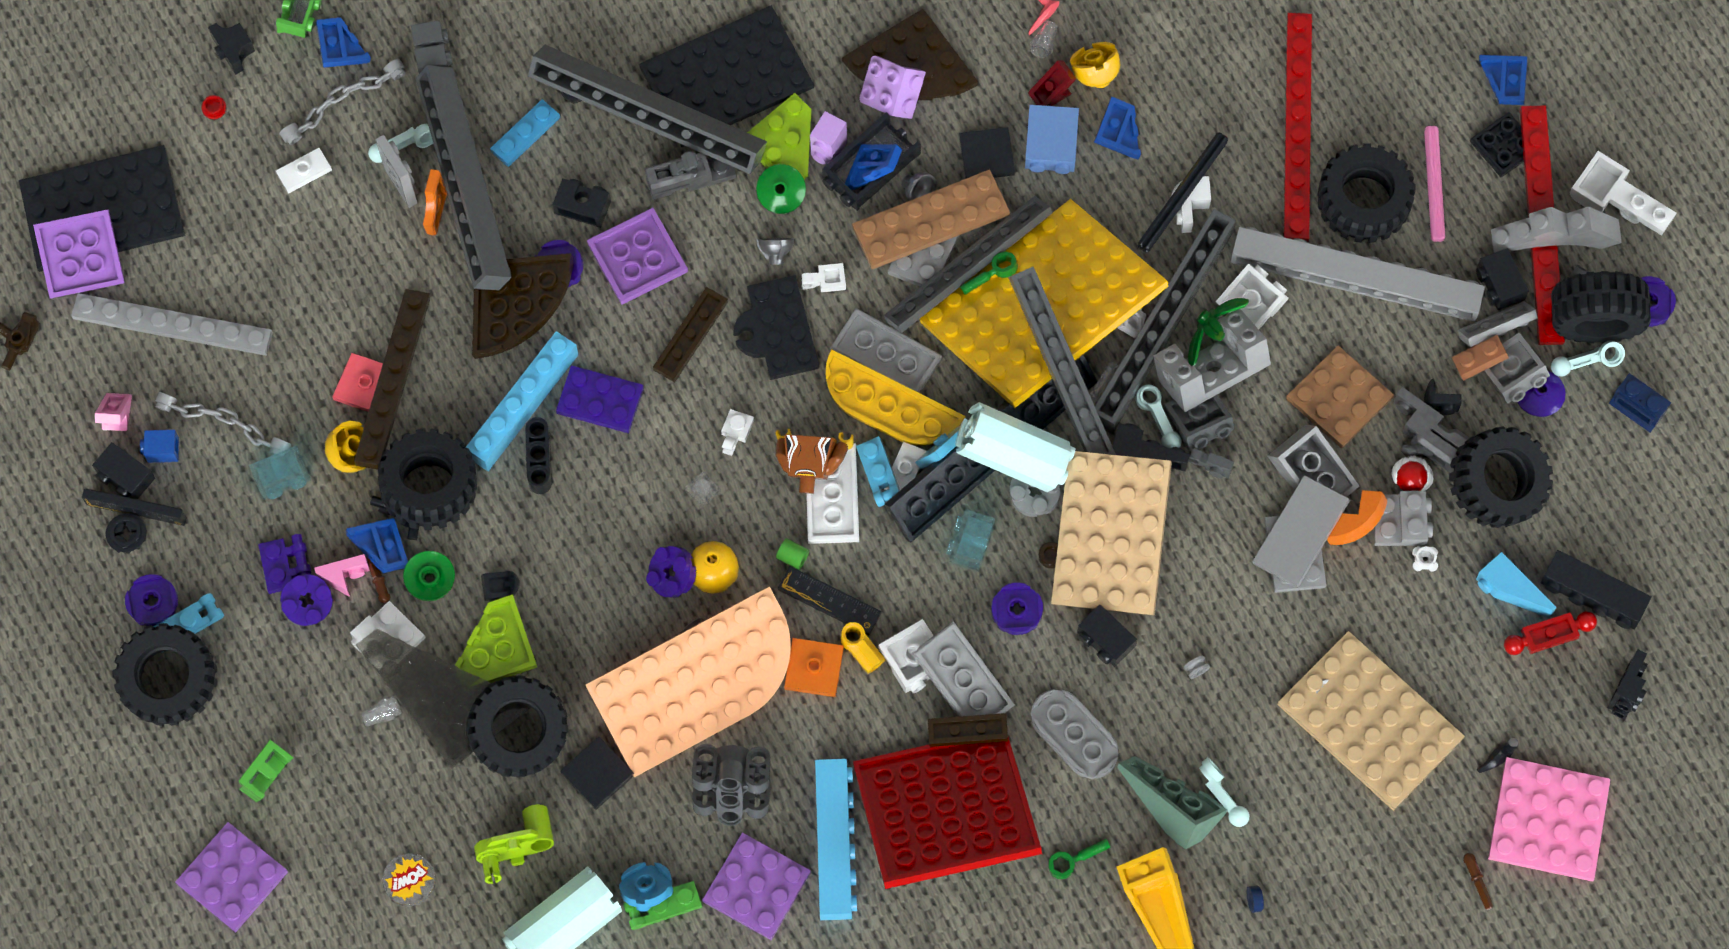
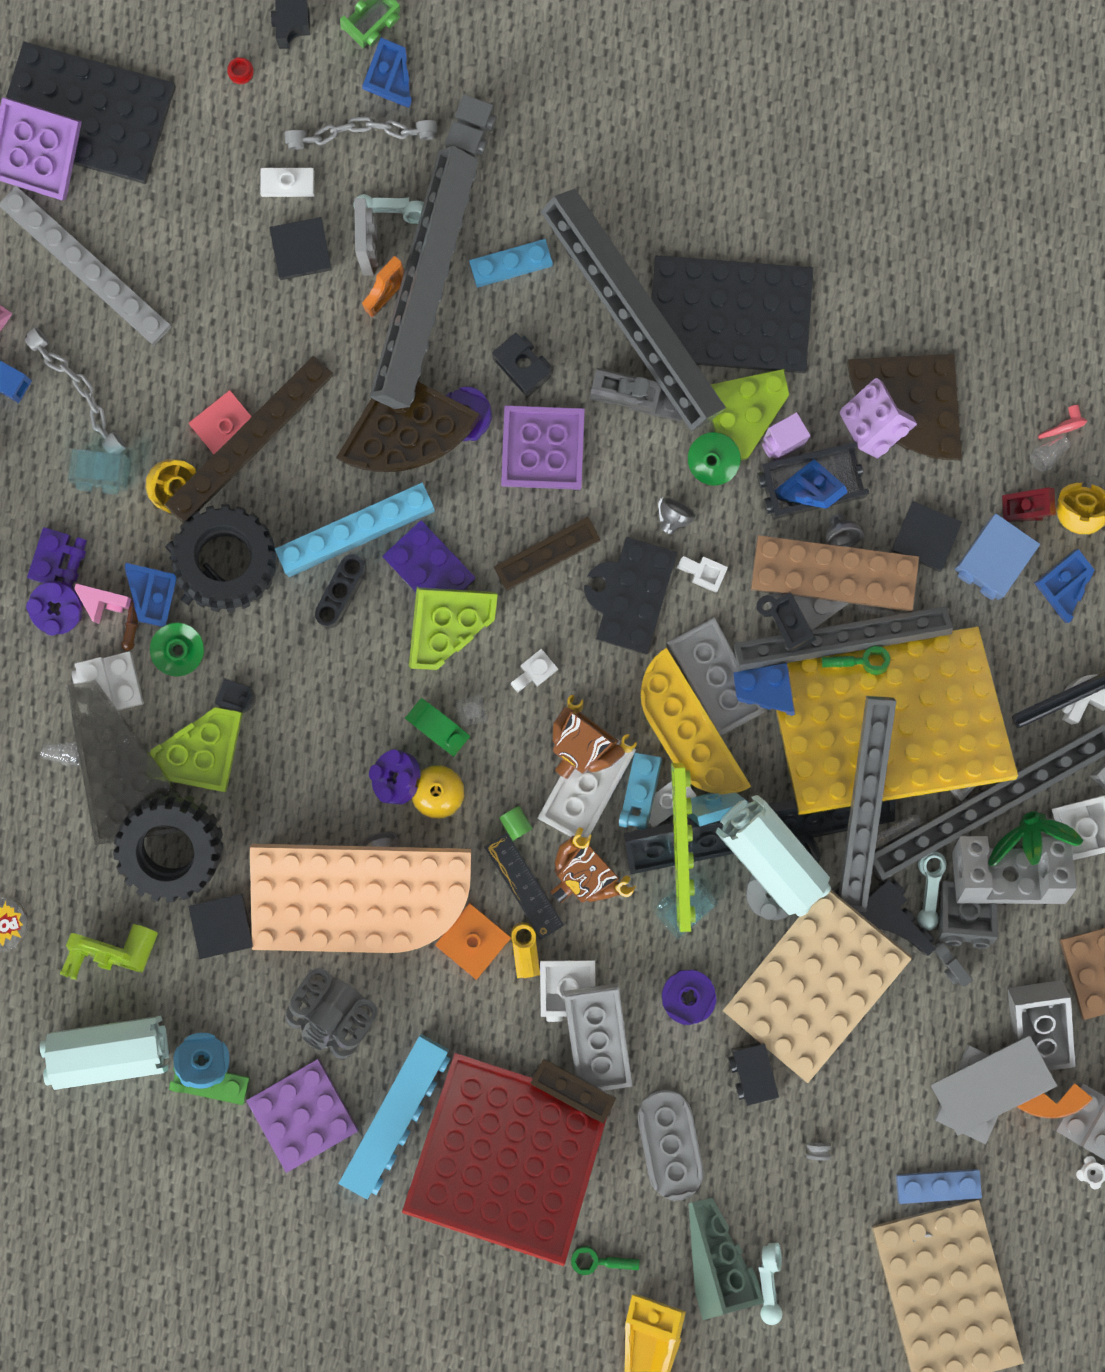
camera: 30 degrees right, 15 degrees up
(345, 213) = (300, 248): none -> black tile
(641, 431) = (446, 623): none -> lime plate
(682, 511) = (437, 727): none -> green brick
(872, 557) = (585, 873): none -> dark orange torso
(915, 271) = (788, 619): none -> black hinge
(929, 333) = (766, 687): none -> blue wing
(932, 474) = (682, 835): none -> lime plate
(1048, 554) = (749, 961): dark brown tile -> none
(1310, 640) = (938, 1186): none -> medium blue plate

